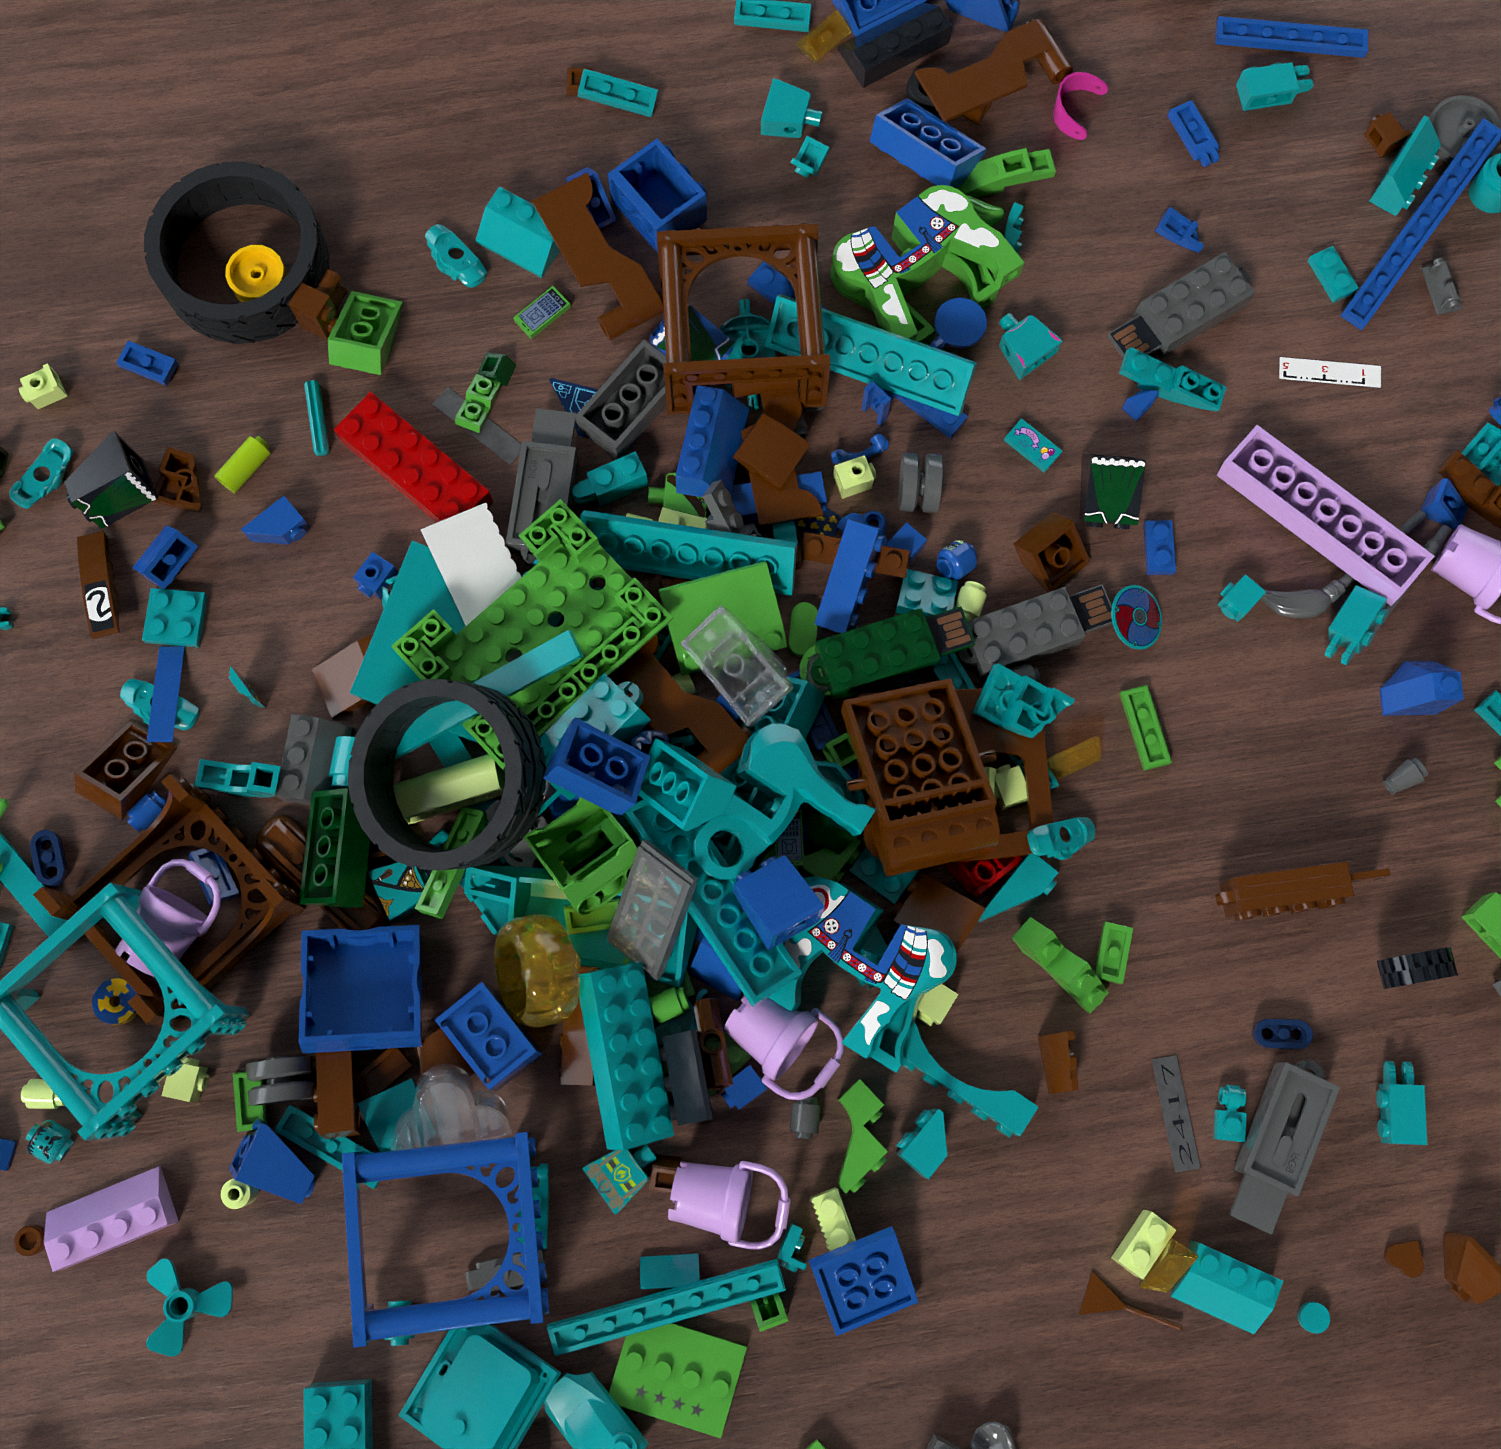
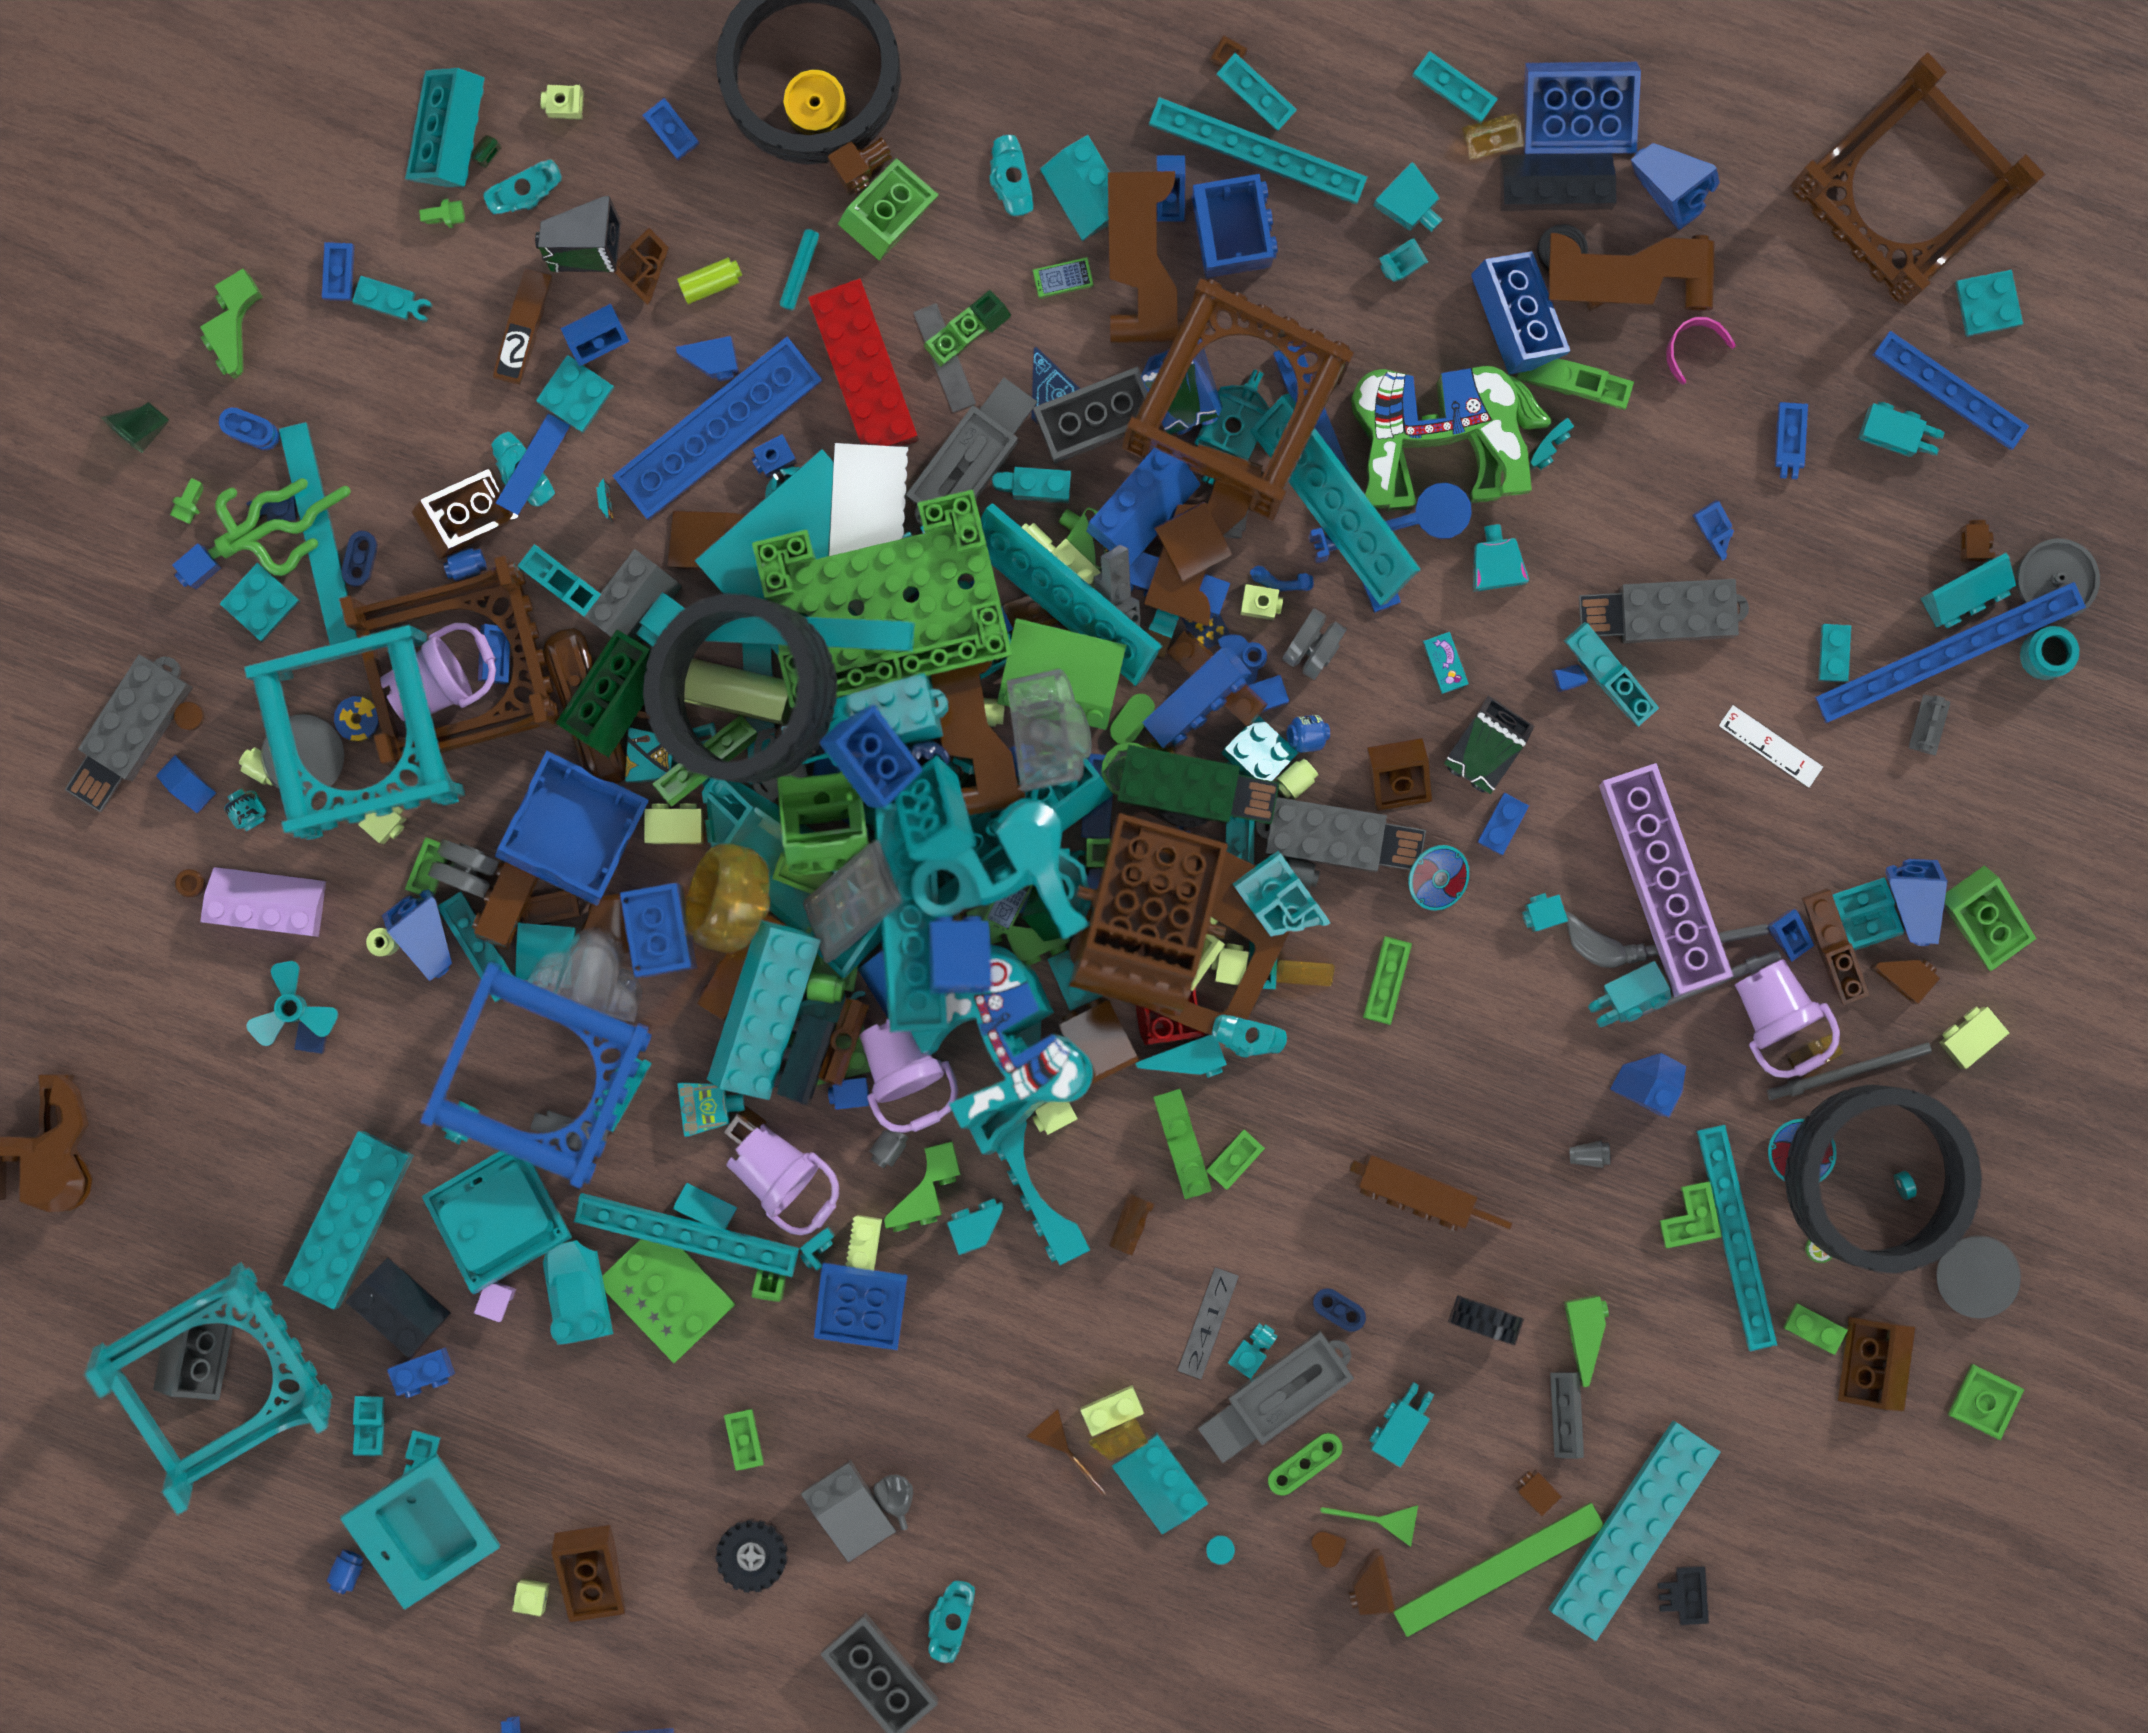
camera: 35 degrees right, 10 degrees up
(88, 1047) = (317, 748): none -> dark grey piece
(216, 1327) = (308, 1040): none -> dark blue tile
(313, 581) = (717, 428): none -> blue plate
(455, 936) = (674, 825): none -> yellowish green brick
(634, 137) = (1257, 151): none -> teal plate
(1348, 1182) = (1318, 1461): none -> bright green plate
(1450, 1197) = (1398, 1523): none -> bright green piece

